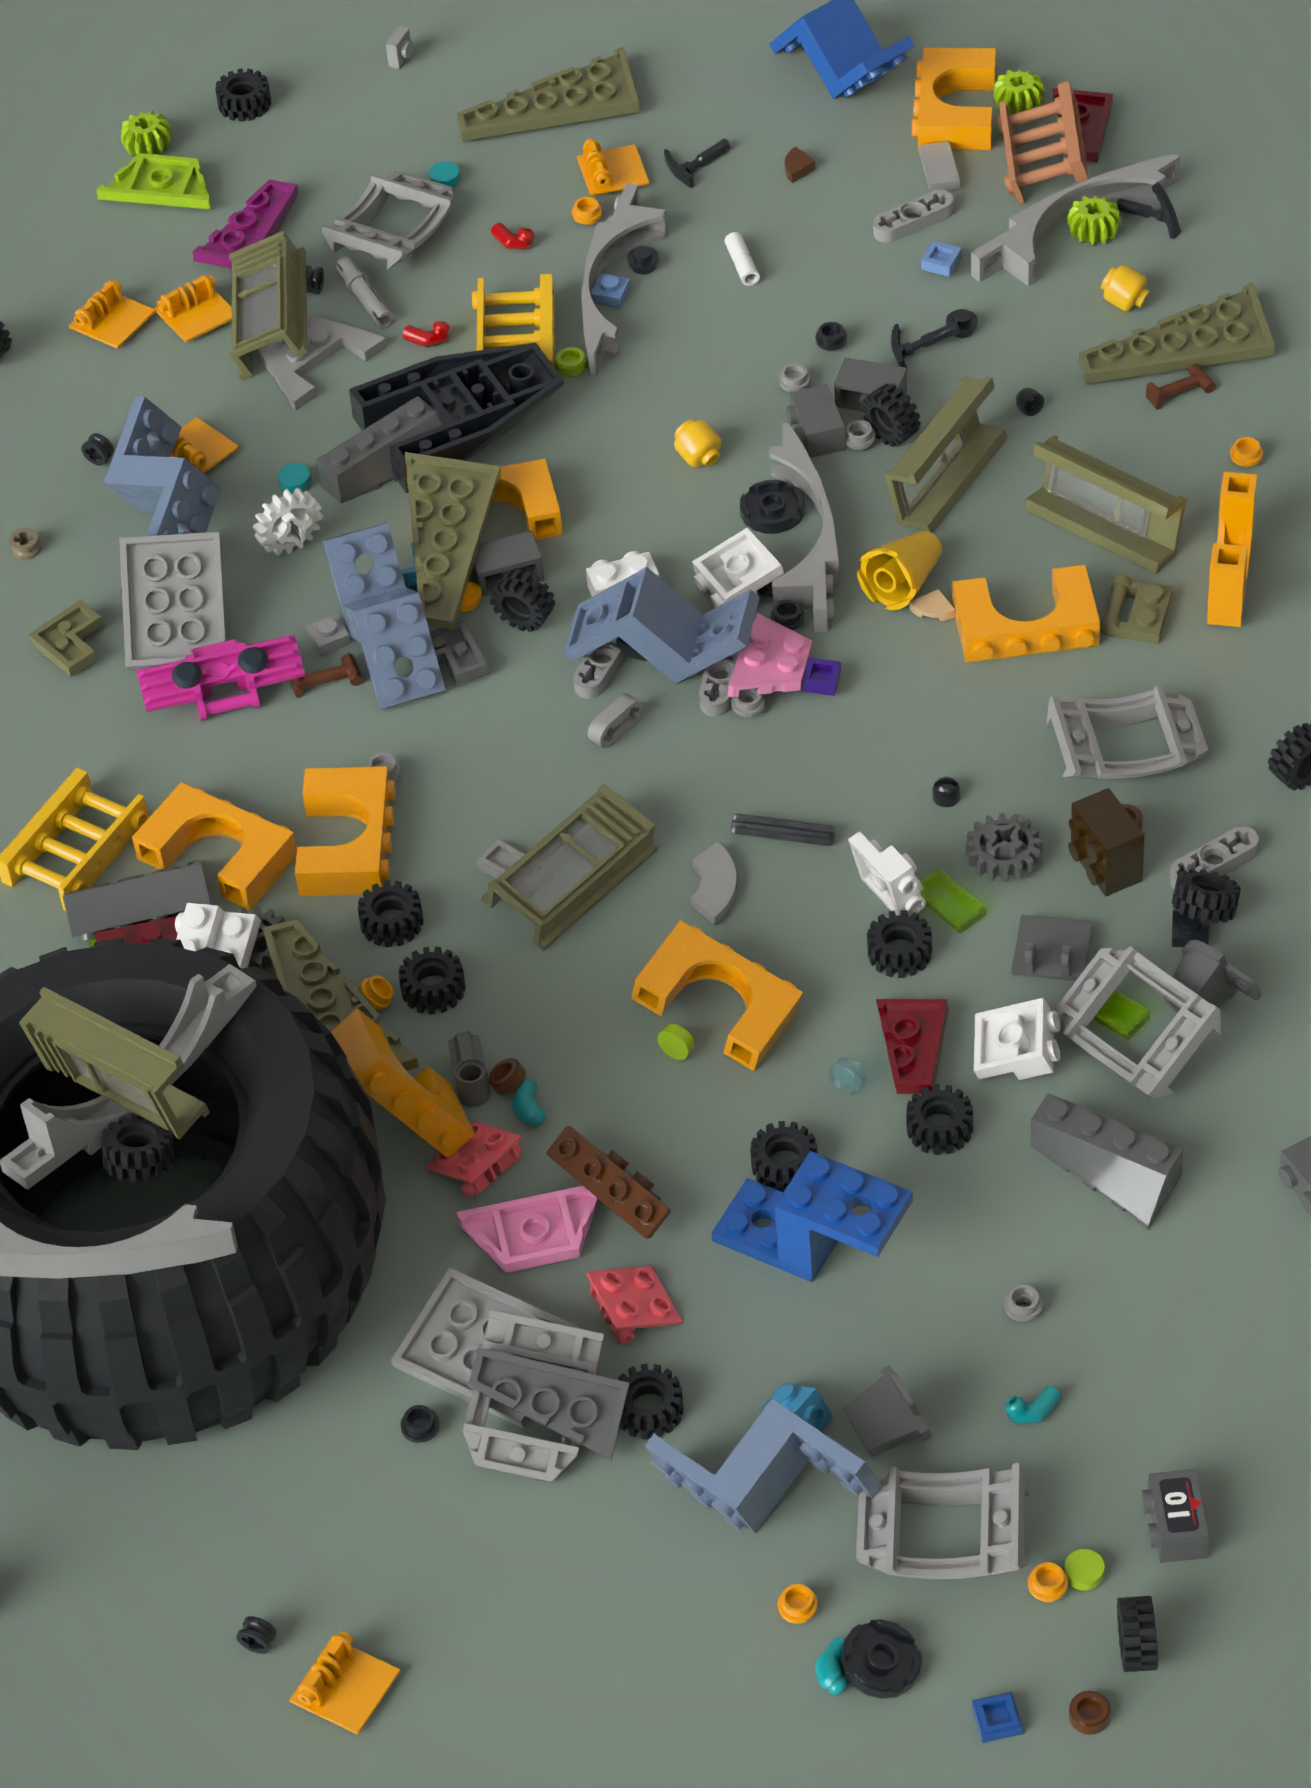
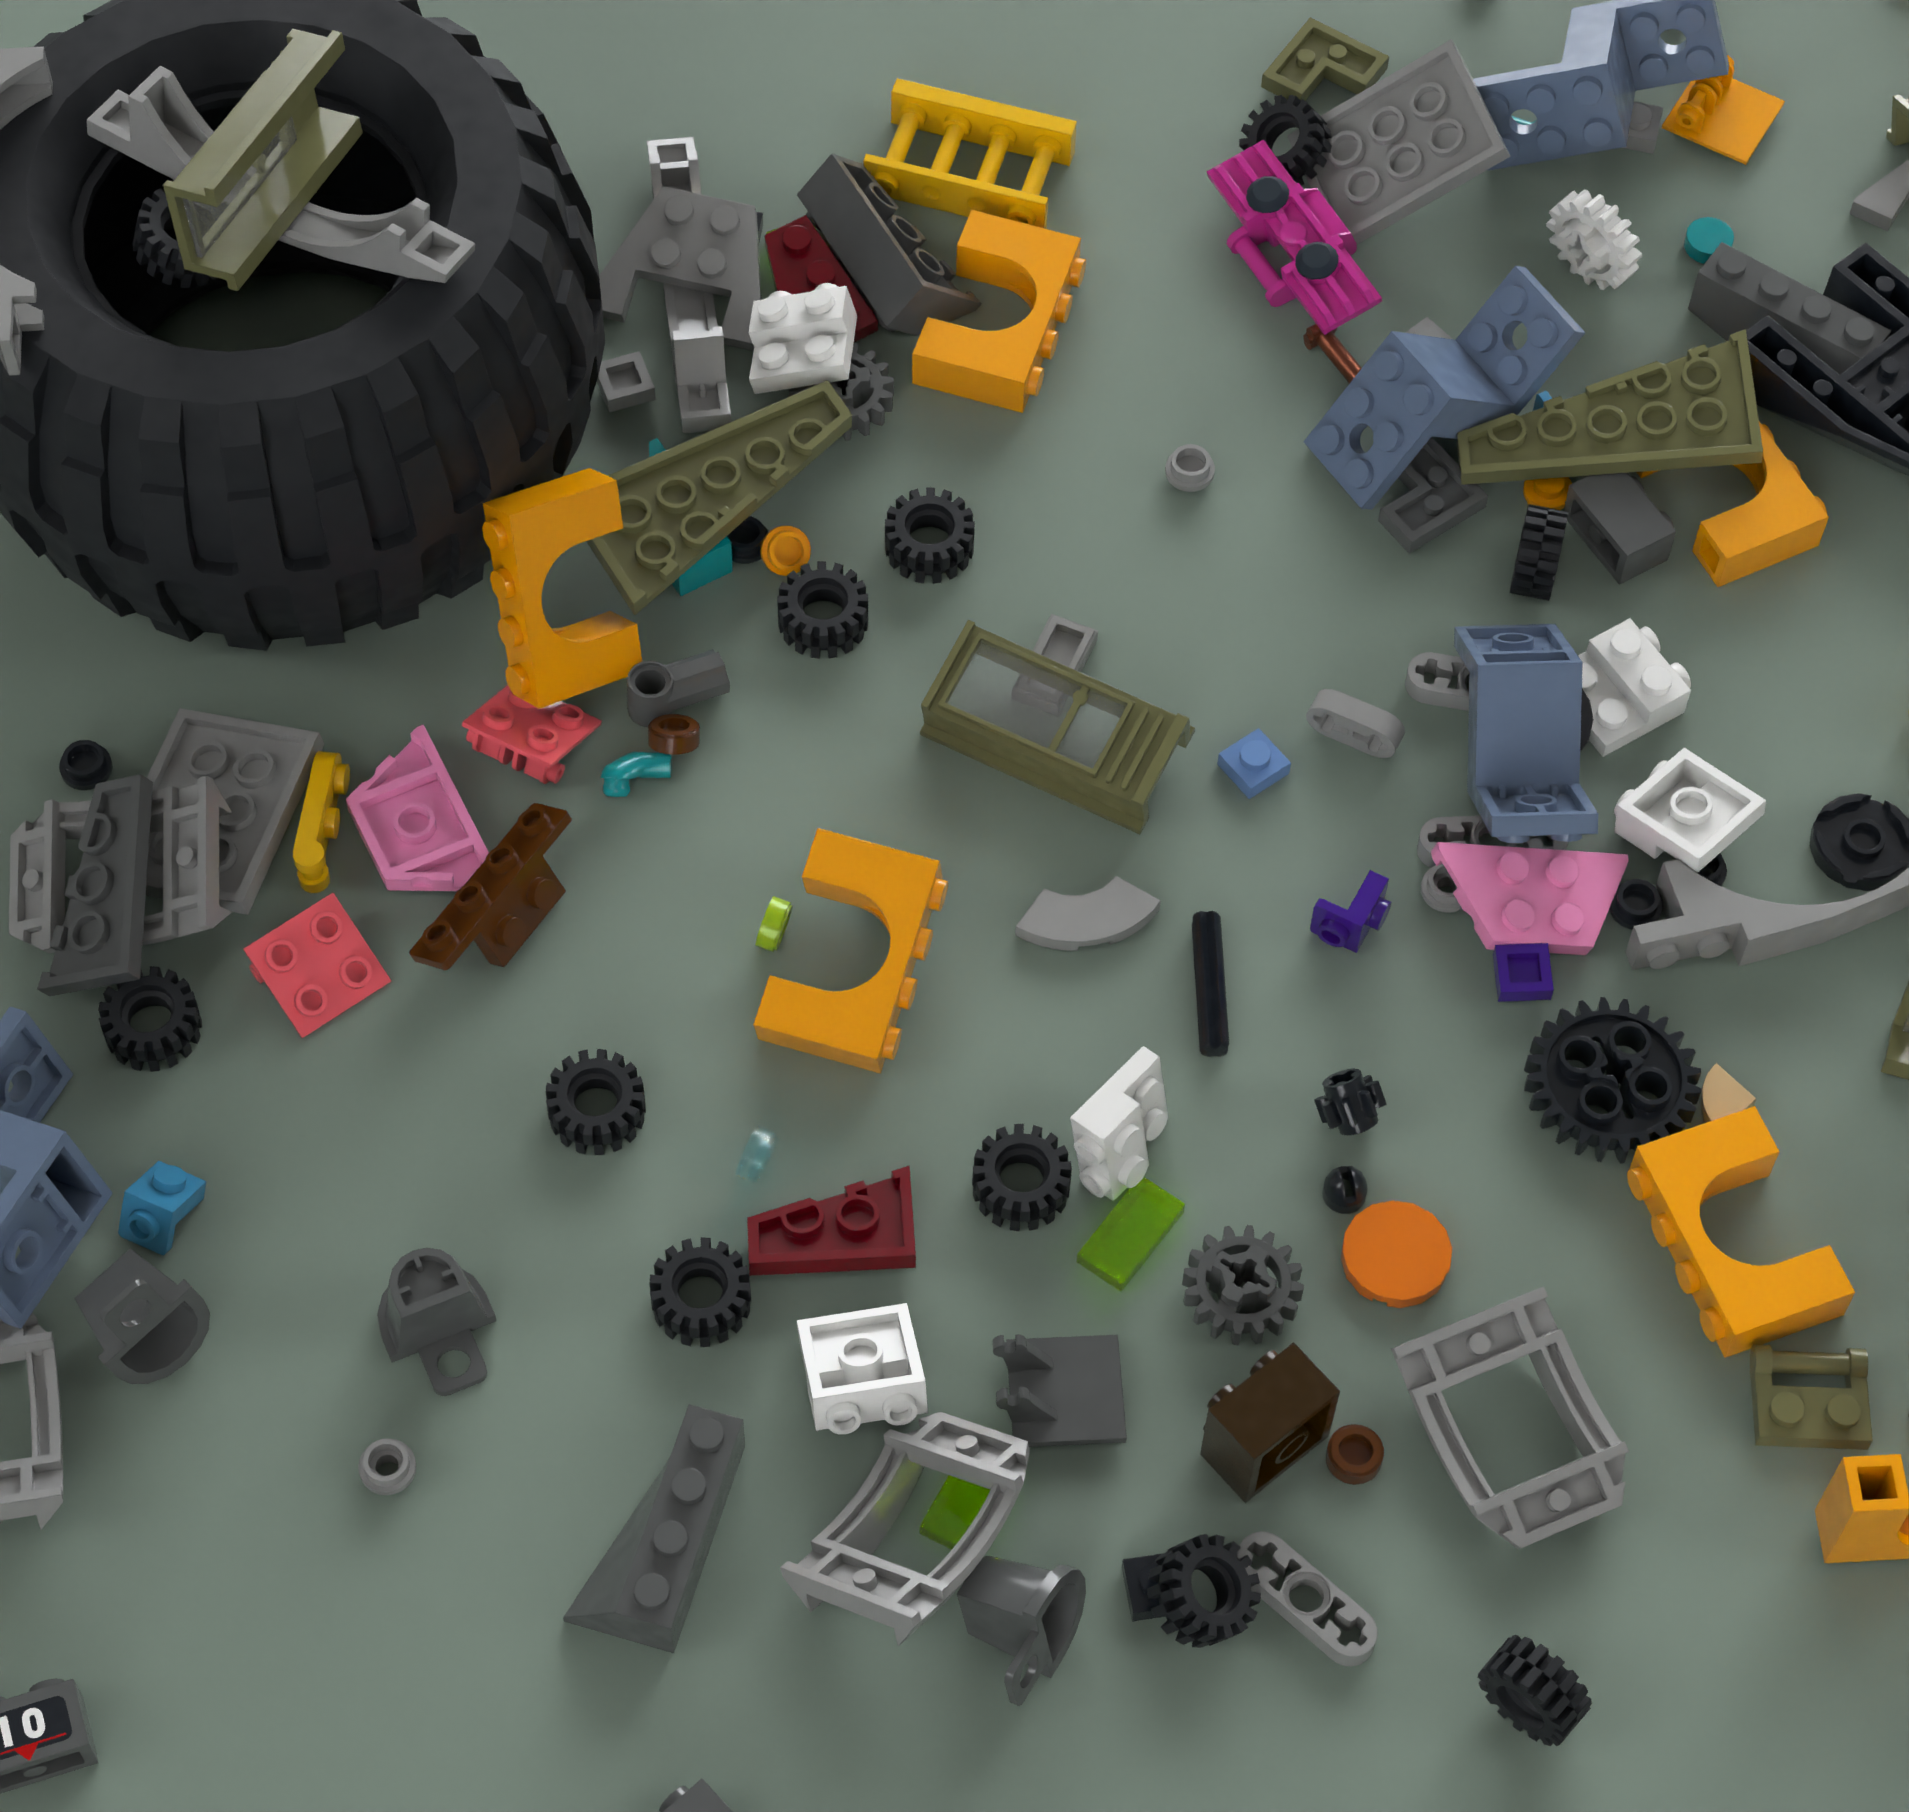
camera: 70 degrees right, 10 degrees up
(125, 646) = (1288, 115): none -> black tyre
(361, 863) = (1013, 484): light orange arch -> none
(537, 1290) = (319, 820): none -> yellow plate
(625, 779) = (1254, 763): none -> medium blue plate
(758, 744) = (1350, 927): none -> dark purple bracket
(812, 1216) = (450, 1141): blue bracket -> none
(892, 771) = (1350, 1102): none -> black gear
(898, 569) = (1776, 1035): yellow cone -> none
(908, 649) = (1569, 1090): none -> black gear
(914, 1265) = (432, 1311): none -> dark grey container
(997, 776) = (1396, 1253): none -> orange tile
(1032, 1412) = (200, 1512): teal arm -> none

